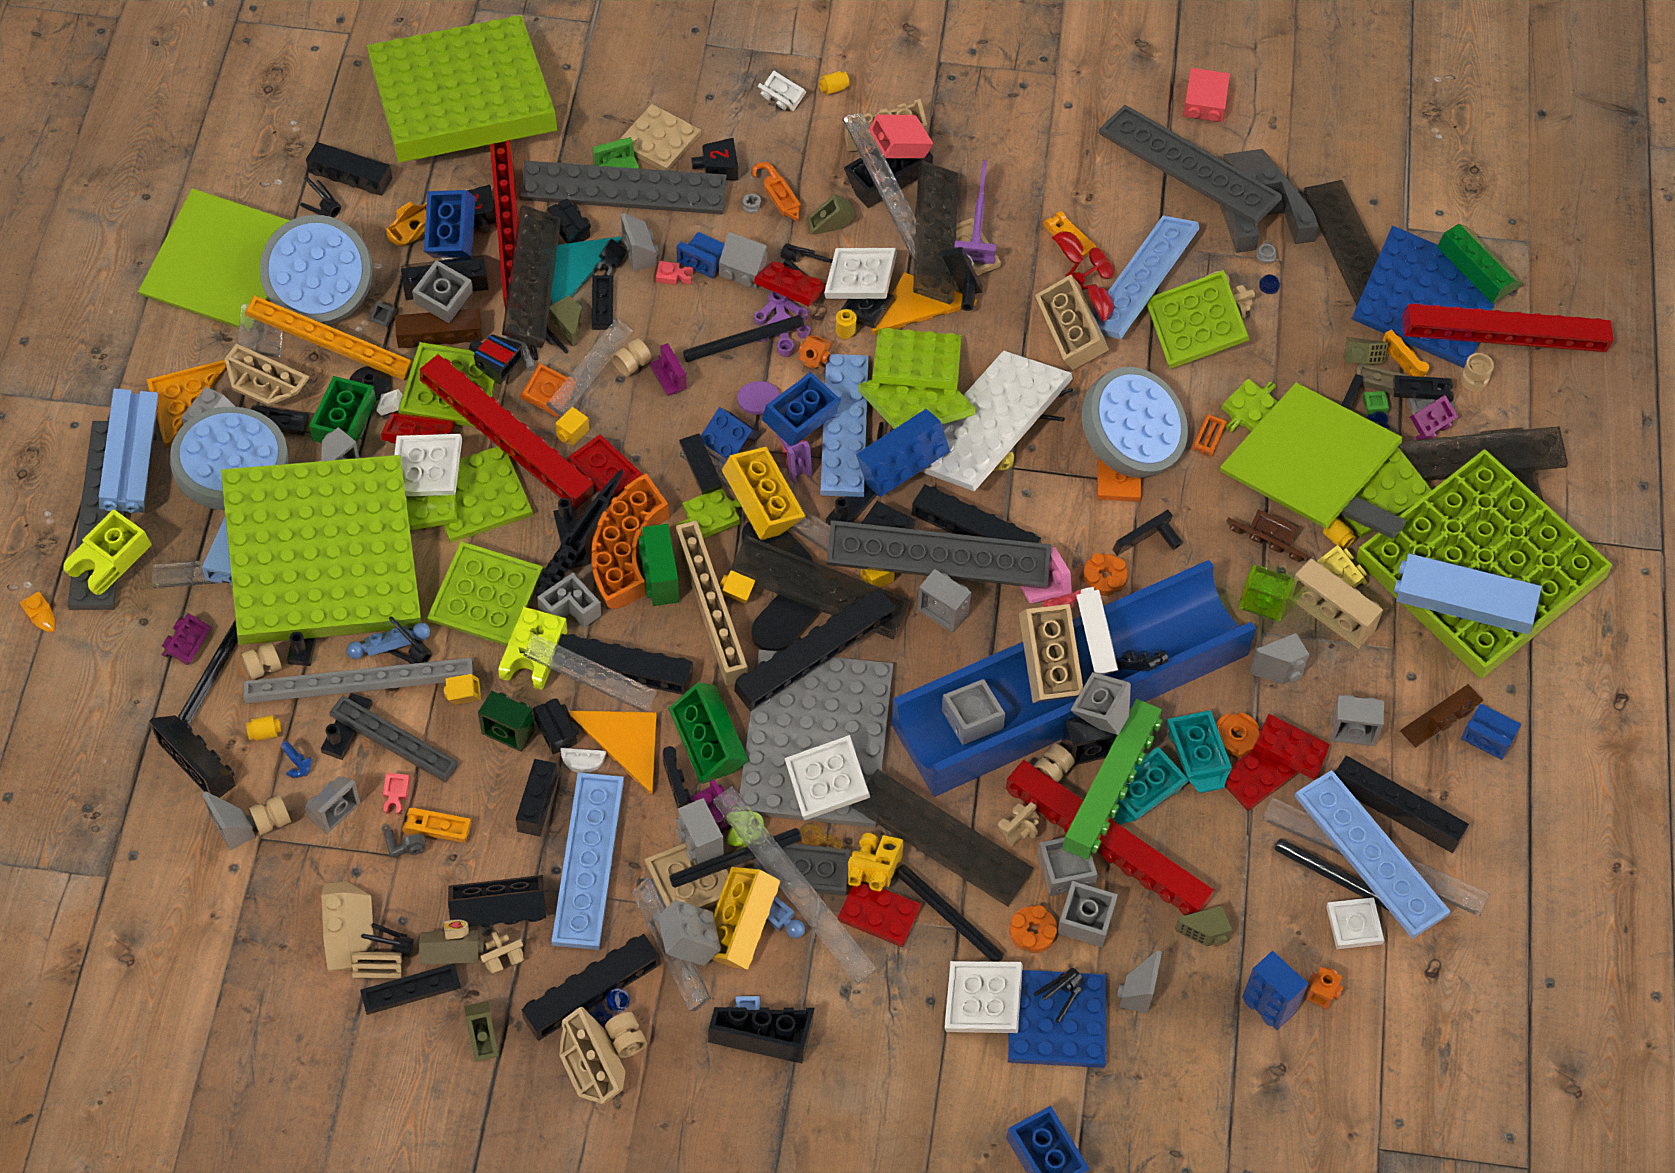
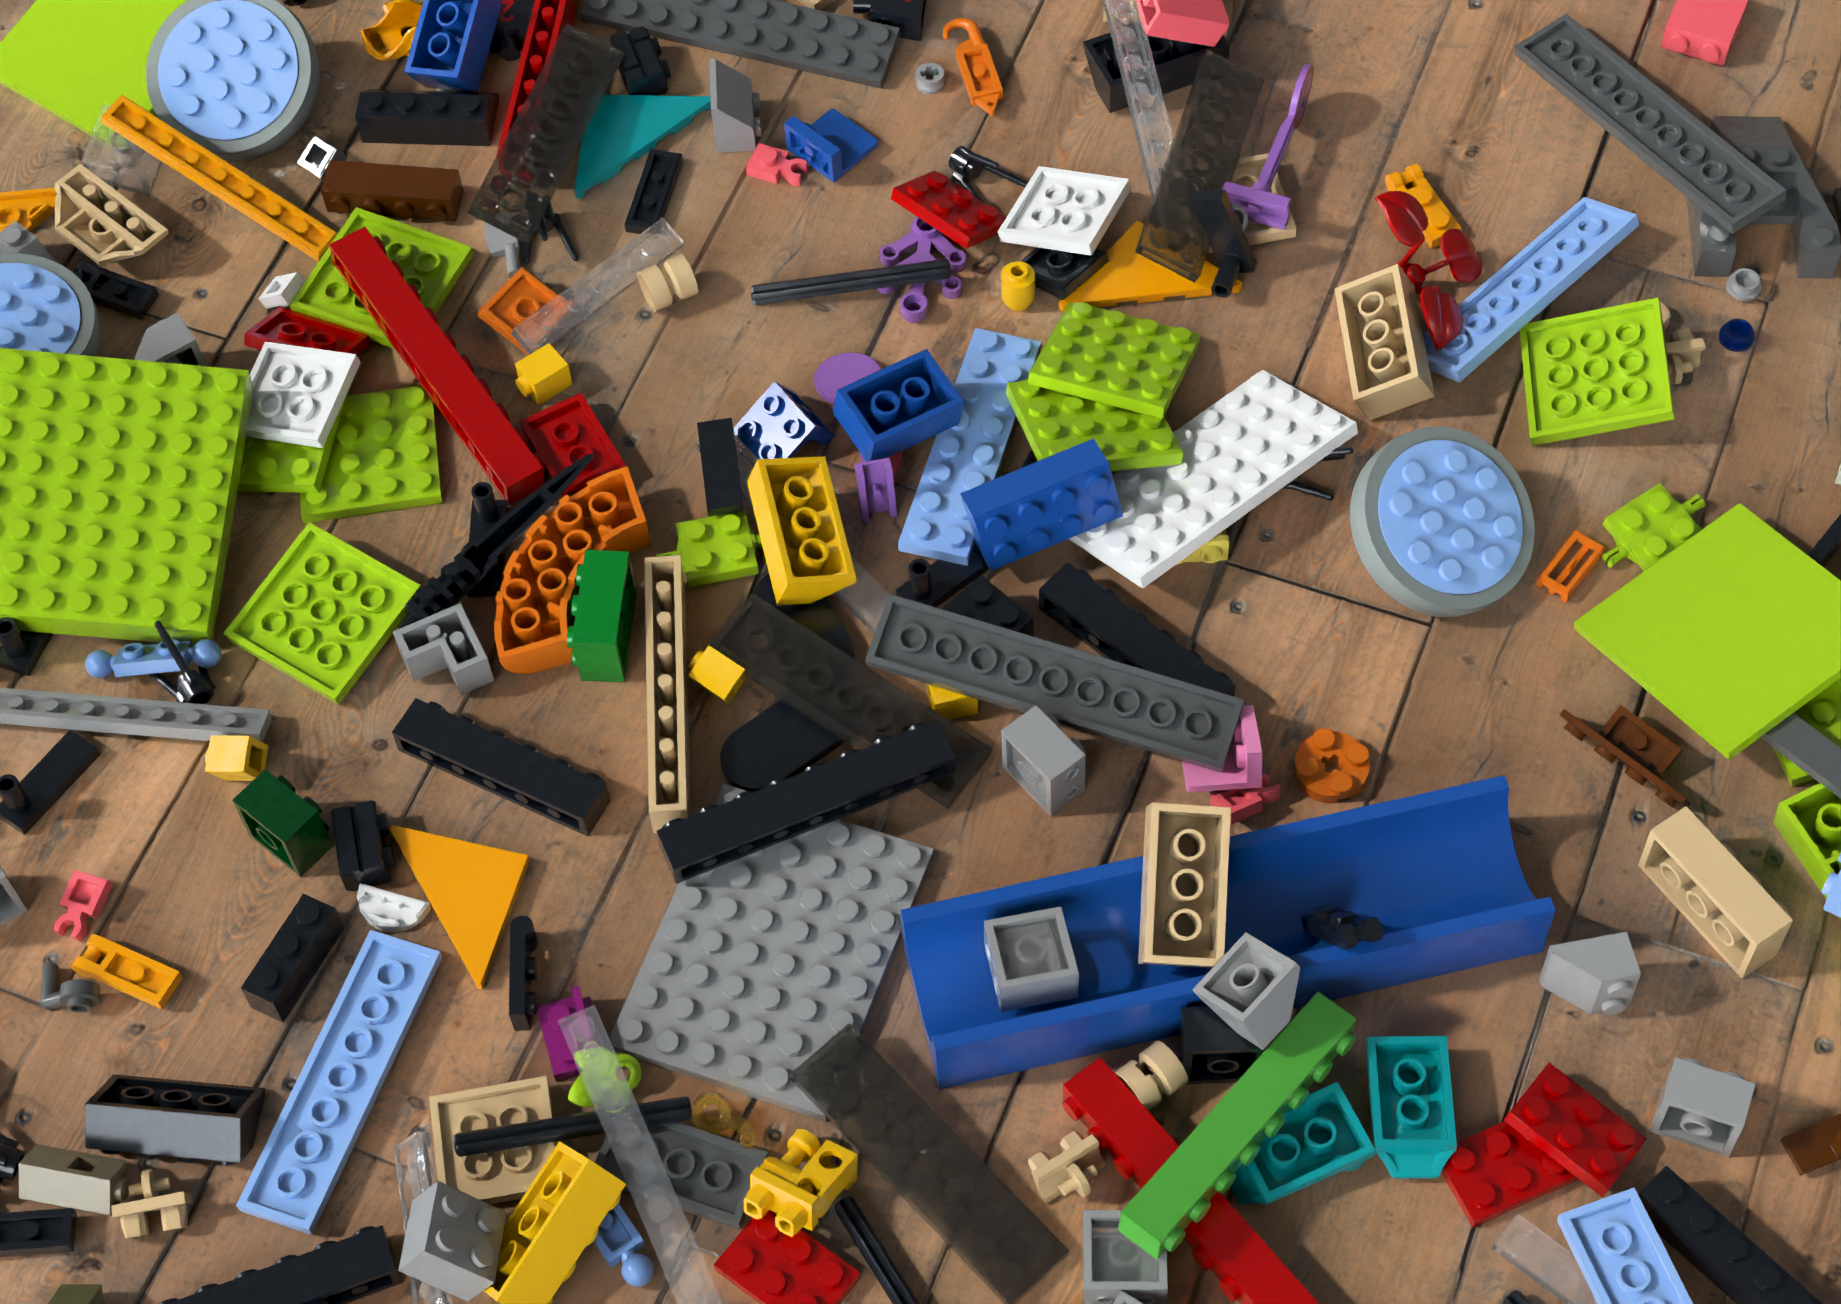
camera: 20 degrees right, 0 degrees up
(345, 406) = (207, 291): green brick -> none
(380, 380) = (264, 258): black dish -> none
(393, 738) = (108, 817): dark grey tile -> none
(442, 291) = (404, 134): light grey brick -> none
(455, 929) = (86, 1152): tile -> none
(496, 356) = (459, 247): black torso -> none
(529, 623) = (365, 711): neon yellow brick -> none
(567, 318) = (591, 207): olive slope -> none
(590, 673) = (437, 771): clear plate -> none
(611, 256) = (686, 124): black plate -> none
(669, 371) = (718, 315): magenta bracket -> none
(699, 832) = (518, 1072): light grey brick -> none
(708, 733) = (598, 906): green slope -> none
(742, 260) = (882, 159): light grey slope -> none
(814, 351) = (955, 320): orange brick -> none
(827, 777) = (759, 1022): white plate -> none
(831, 215) = (1047, 114): olive slope -> none
(1097, 631) = (1274, 865): white slope -> none
(1116, 486) = (1391, 623): orange plate -> none
(1158, 523) = (1443, 698): black piece -> none
(1249, 732) = (1498, 1067): orange plate -> none
(1266, 593) = (1596, 850): clear neon green brick -> none
(1339, 534) = (1754, 772): yellow brick -> none
(1340, 564) = (1742, 827): light yellow bracket -> none

